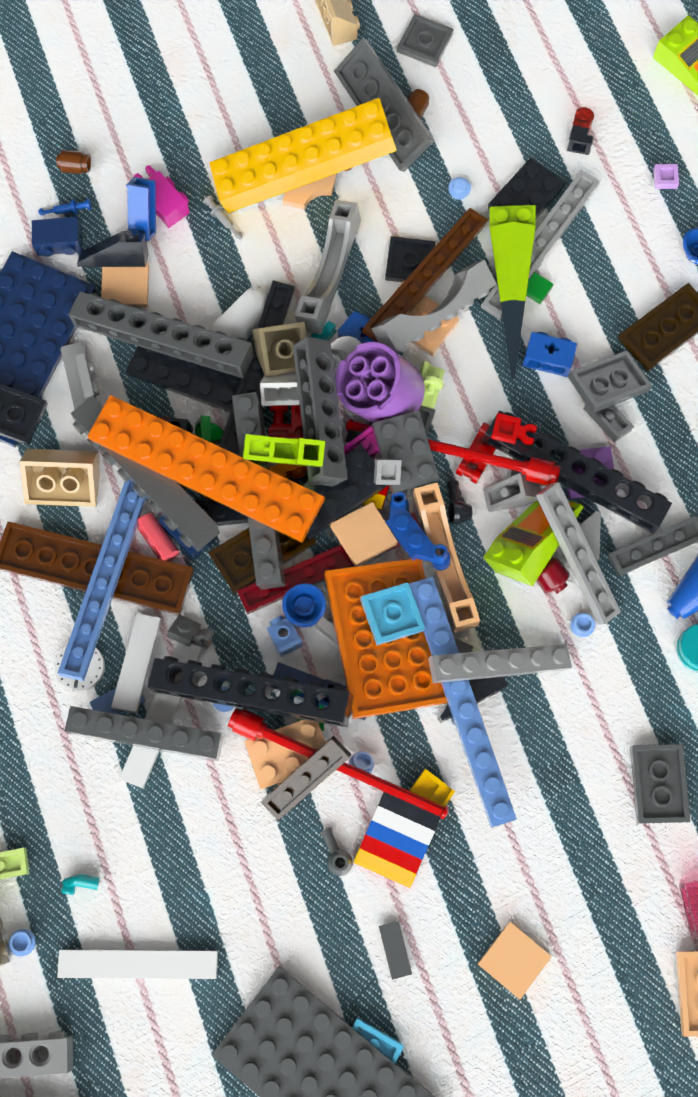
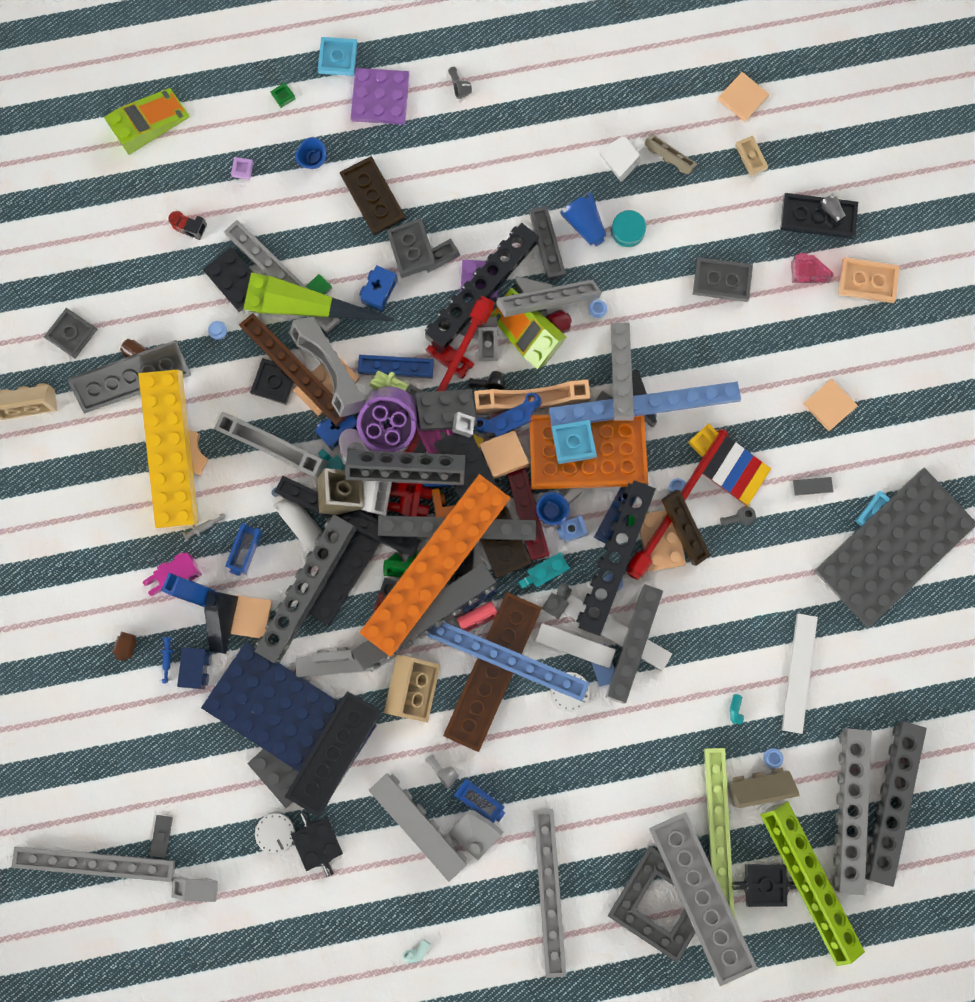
camera: 80 degrees left, 5 degrees up
(201, 262) = (243, 550): none -> blue window
(226, 612) = (545, 571): none -> teal plate
(284, 450) = (436, 494): lime arch -> none
(456, 393) = (399, 365): none -> blue tile
(509, 429) = (444, 327): red plate -> none

